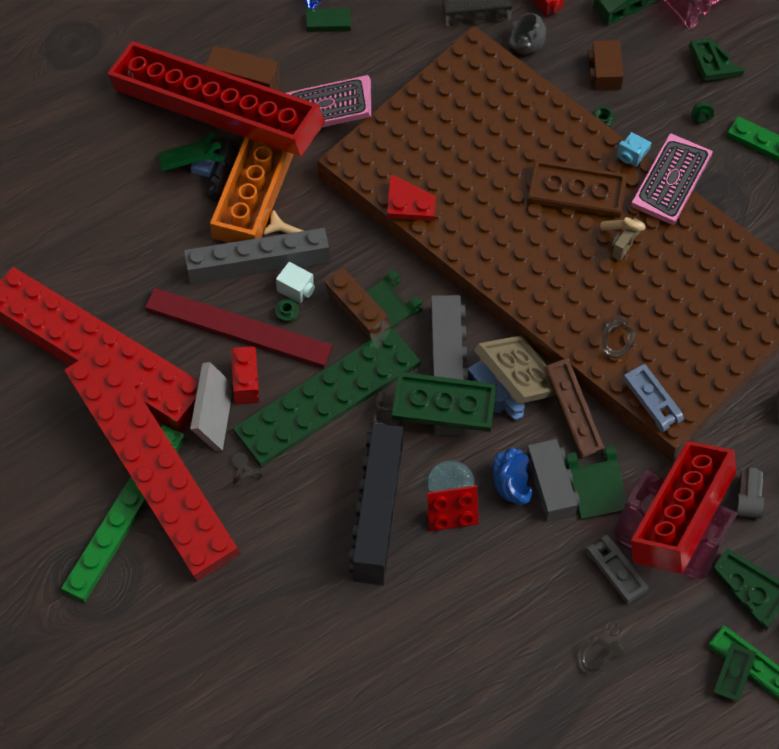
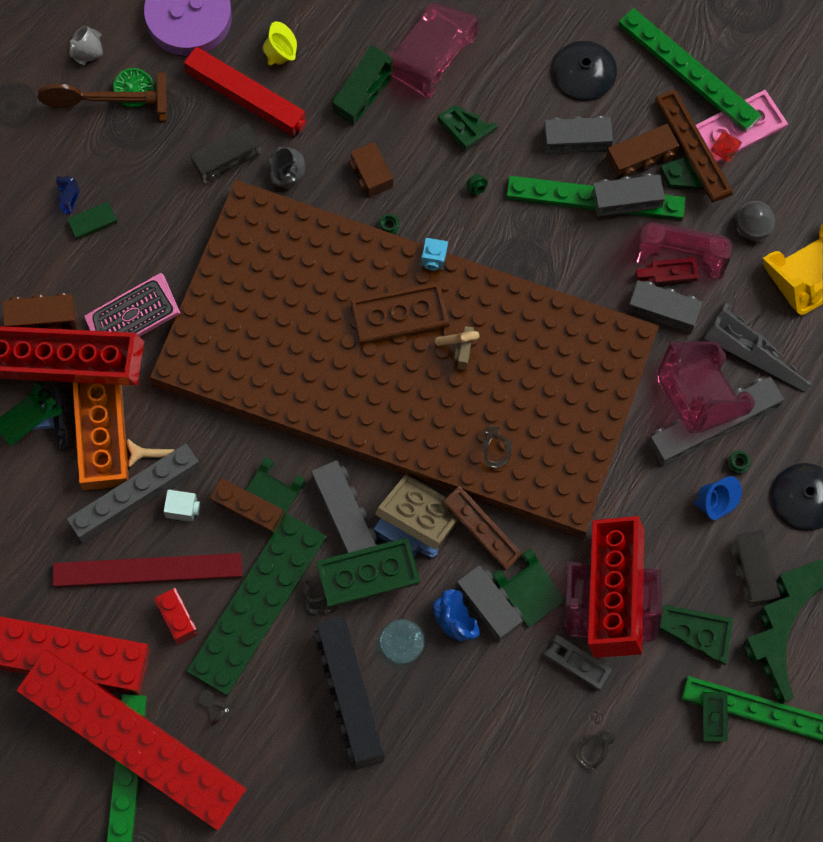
camera: 25 degrees left, 10 degrees up
(212, 406) = (161, 661): light grey tile -> none
(287, 316) = (184, 542): dark green plate -> none
(409, 201) = (253, 387): red wing -> none
(452, 508) = (416, 669): red hinge -> none
(653, 397) = (549, 494): sand blue plate -> none
(671, 179) = (480, 270): tile -> none
(750, 499) = (665, 551): dark grey piece -> none

